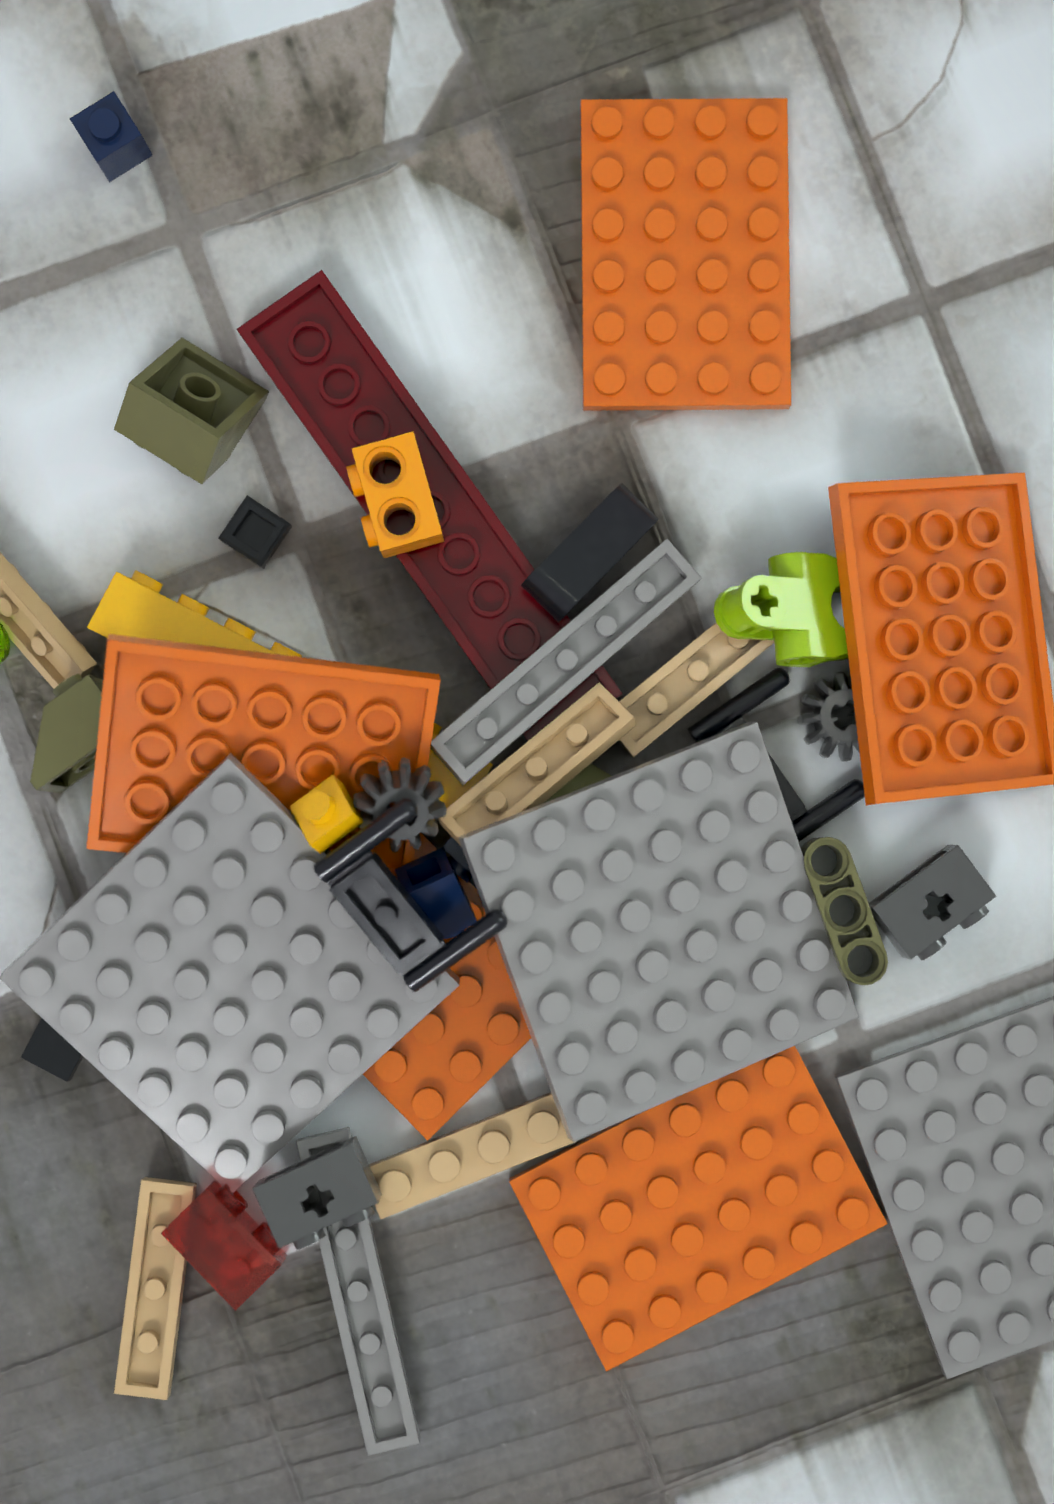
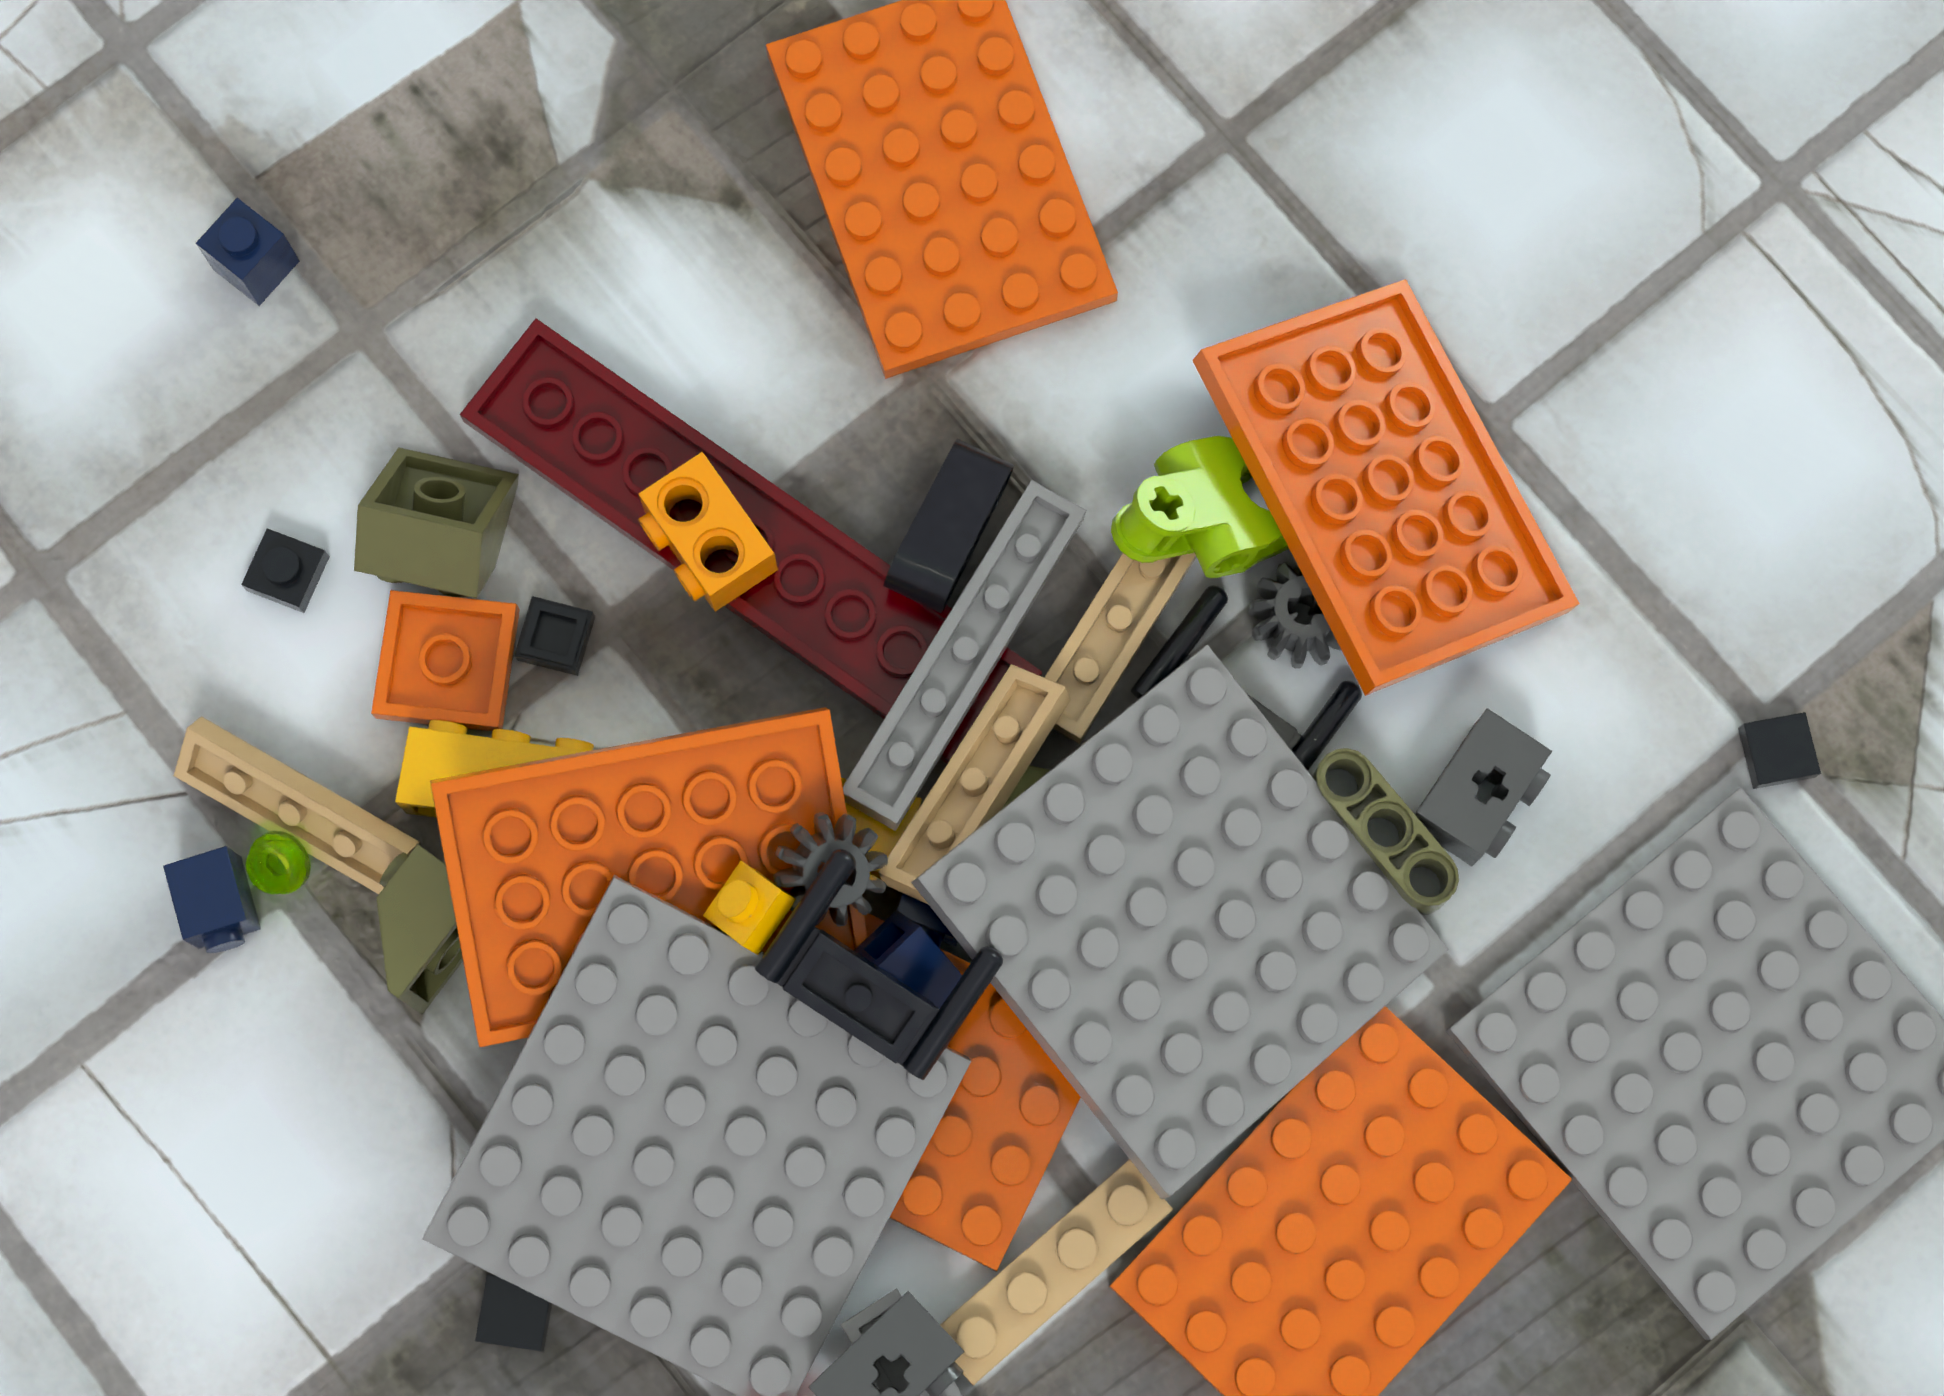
camera: 20 degrees left, 10 degrees down
(63, 408) = (285, 570): none -> black plate
(163, 524) = (445, 660): none -> orange plate

